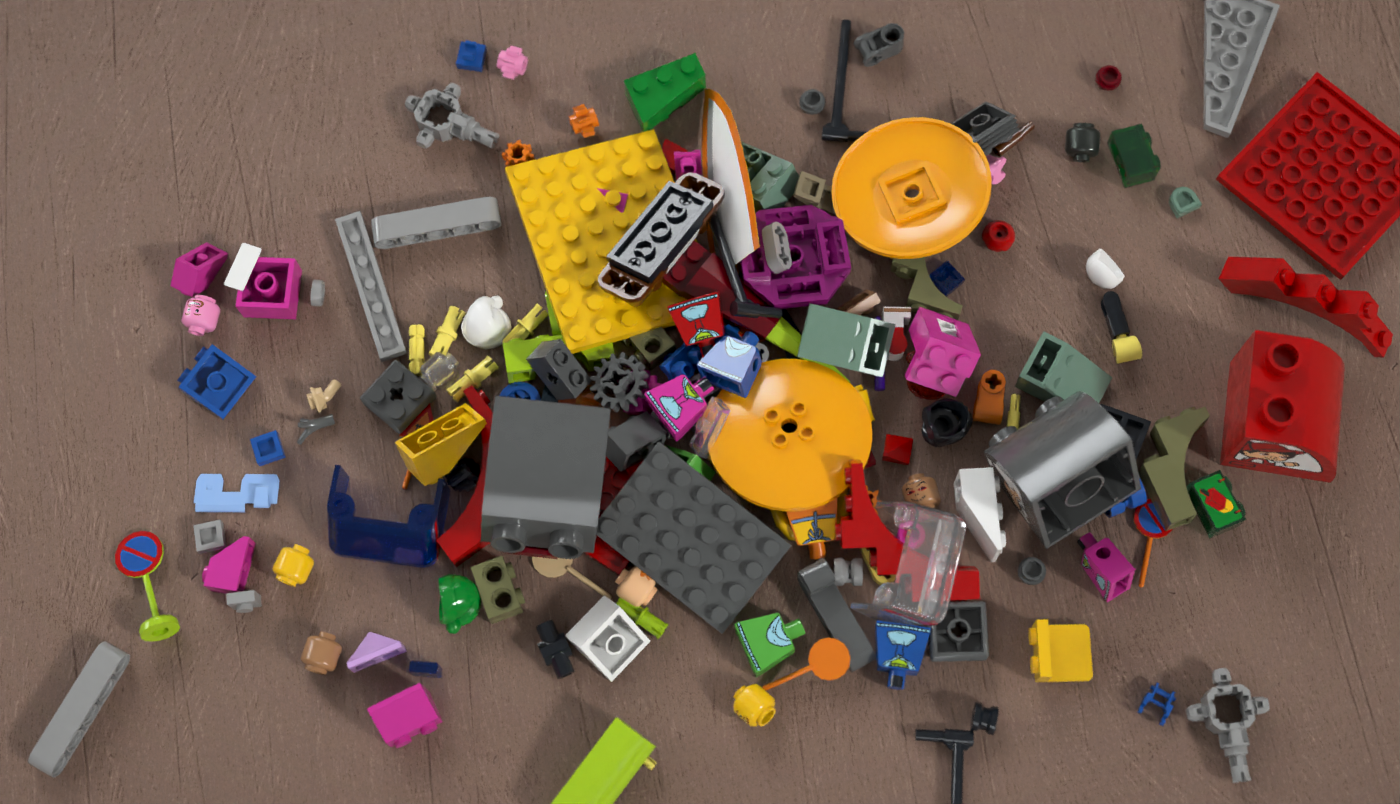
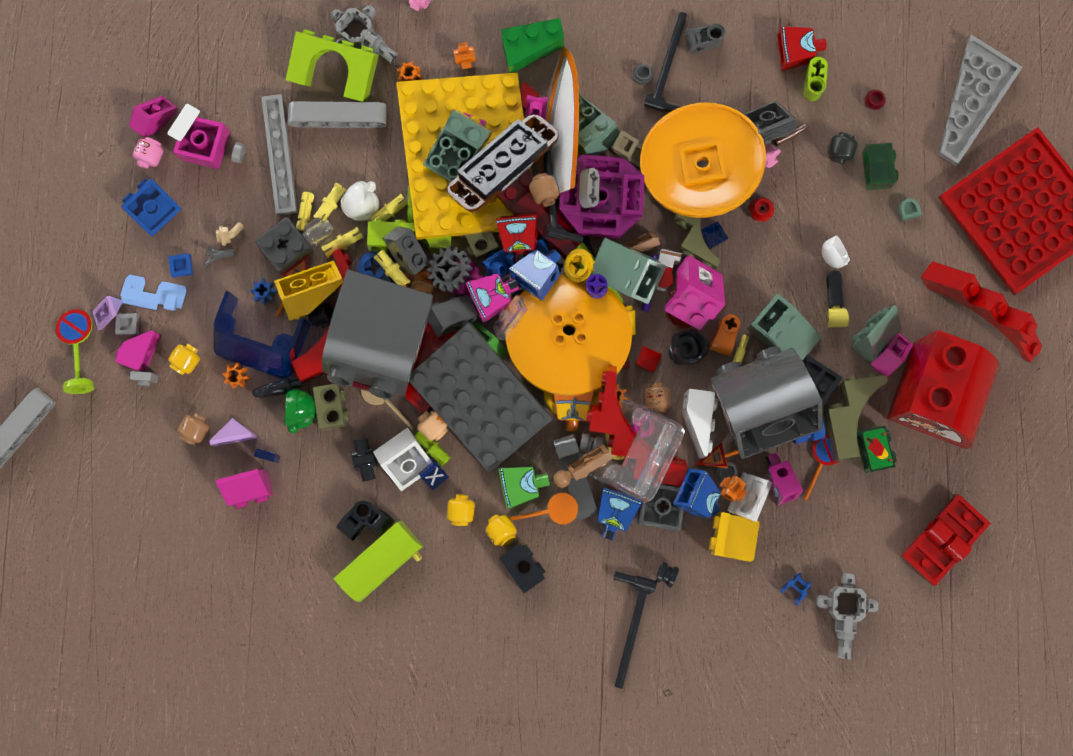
camera: 10 degrees right, 10 degrees up
(179, 525) = (106, 311): none -> lavender slope
(373, 573) = (229, 375): none -> orange gear
(387, 146) = (309, 49): none -> lime arch
(389, 461) = (260, 287): none -> blue gear
(422, 579) = (277, 387): none -> black piece
(536, 391) = (391, 269): none -> light yellow pin
(557, 735) = (354, 522): none -> black piece
(597, 228) = (456, 145): none -> sand green slope
(650, 651) = (433, 475): none -> clear blue tile
(695, 689) = (460, 510): none -> yellow head
(720, 259) = (544, 189): none -> medium nougat head
(779, 335) = (572, 271): none -> yellow gear
(797, 764) = (524, 580): none -> black brick
(812, 359) = (596, 281): none -> dark purple wheel
(843, 598) = (583, 466): none -> medium nougat plate
(998, 33) = (798, 46): none -> red torso
(1002, 604) = (698, 494): none -> blue torso
(1014, 556) = (716, 458): none -> piece
(1027, 50) = (820, 65): none -> lime beam
(1044, 588) = (733, 488): none -> orange gear
(1068, 596) = (753, 501): none -> white plate
(1181, 357) = (878, 334): none -> sand green slope
(1206, 381) = (892, 355): none -> dark pink slope
(1334, 601) = (945, 540): none -> red plate

